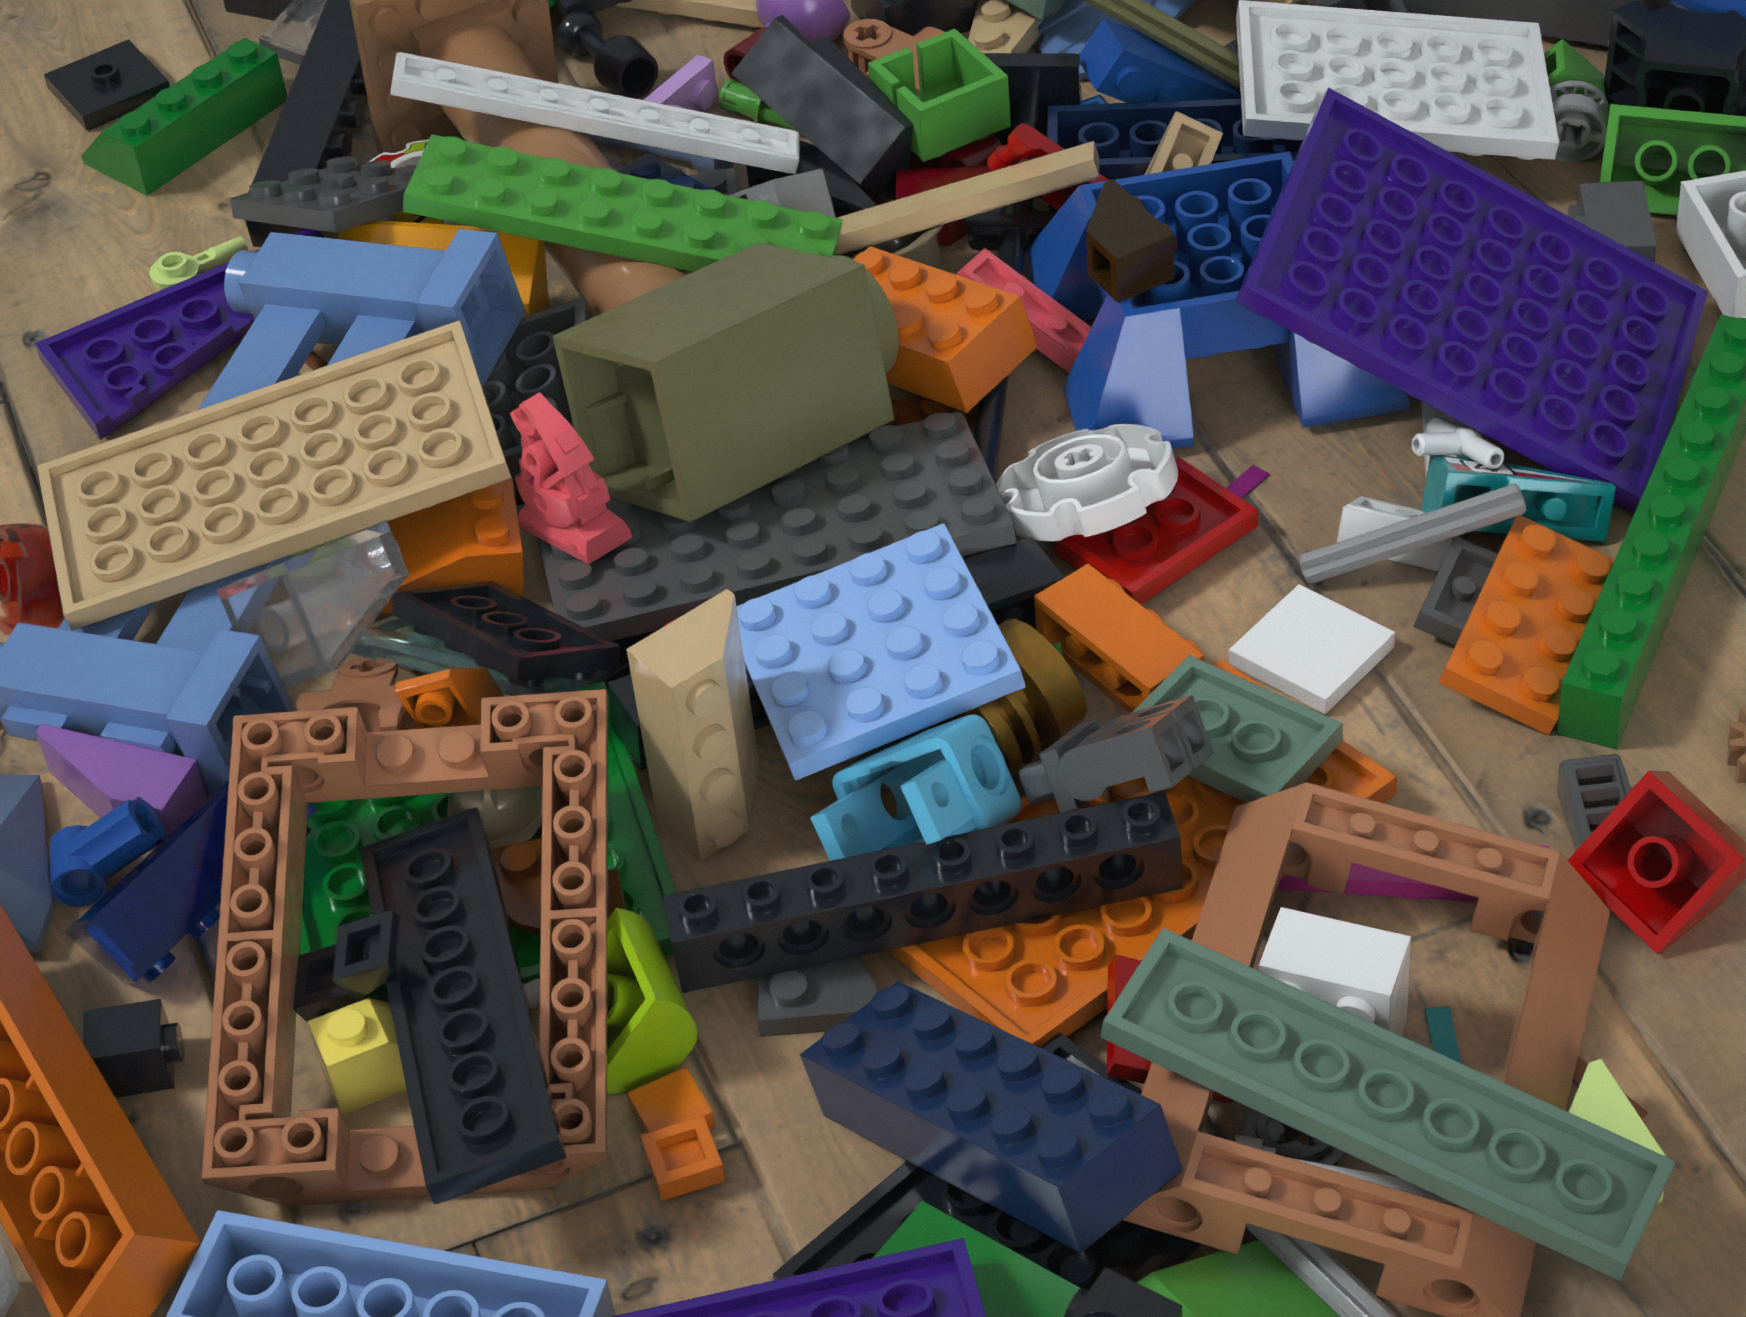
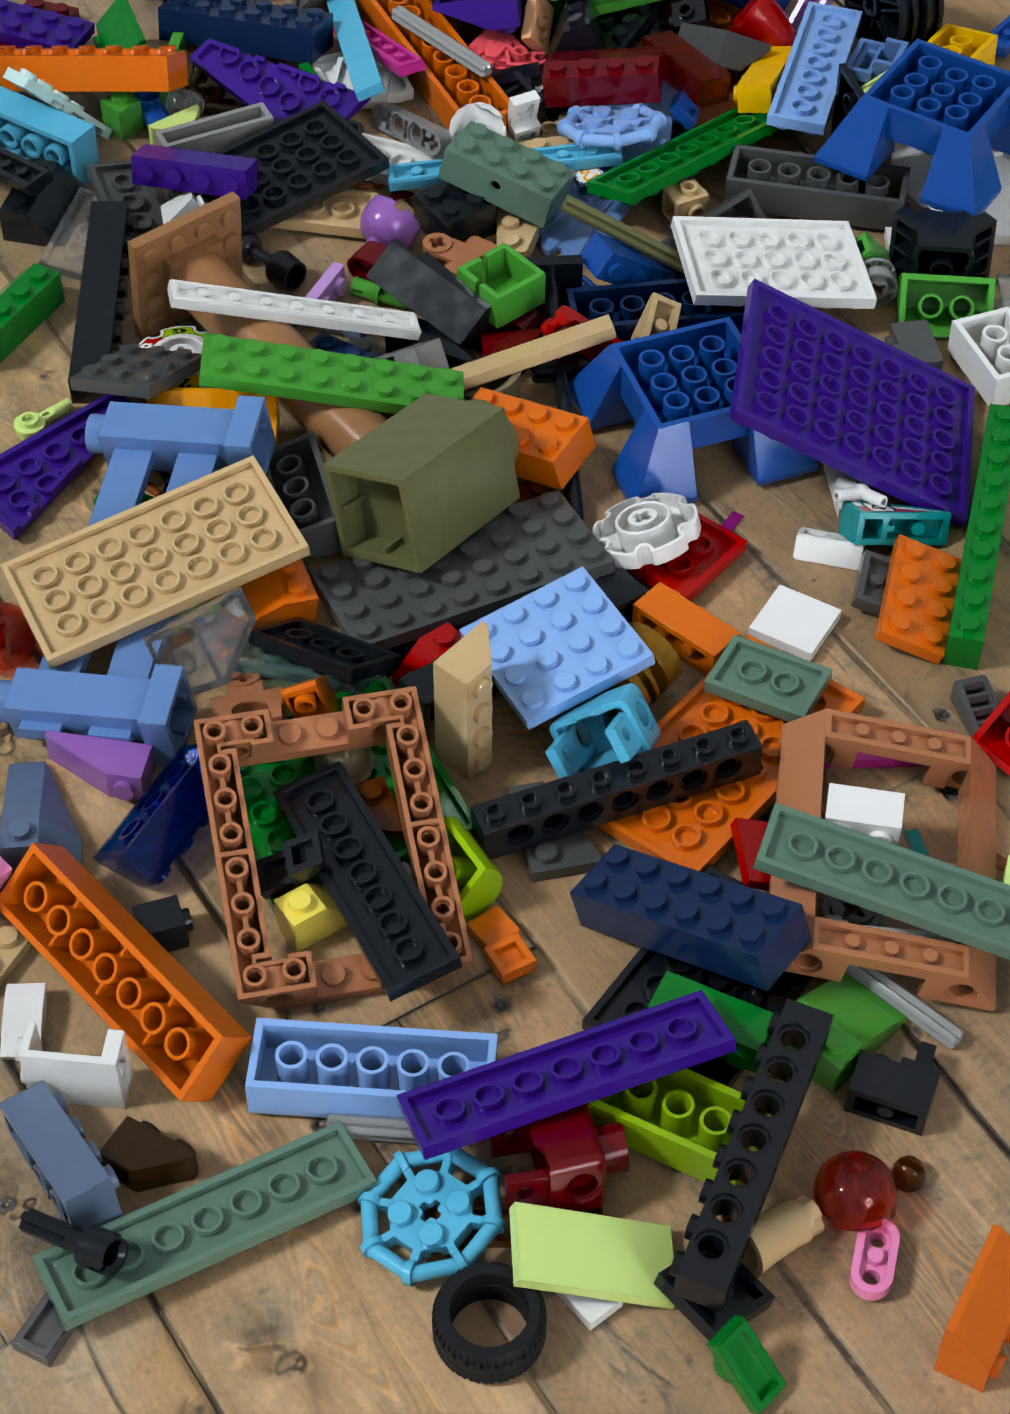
camera: 15 degrees left, 5 degrees up
(89, 855) = (97, 811): blue piece -> none
(559, 488) = (337, 557): coral piece -> none
(1055, 328) = (607, 437): coral tile -> none
(1127, 245) = (653, 384): dark brown slope -> none
(1150, 743) = (714, 698): dark grey hips -> none
(1412, 534) = (841, 550): light grey axle -> none

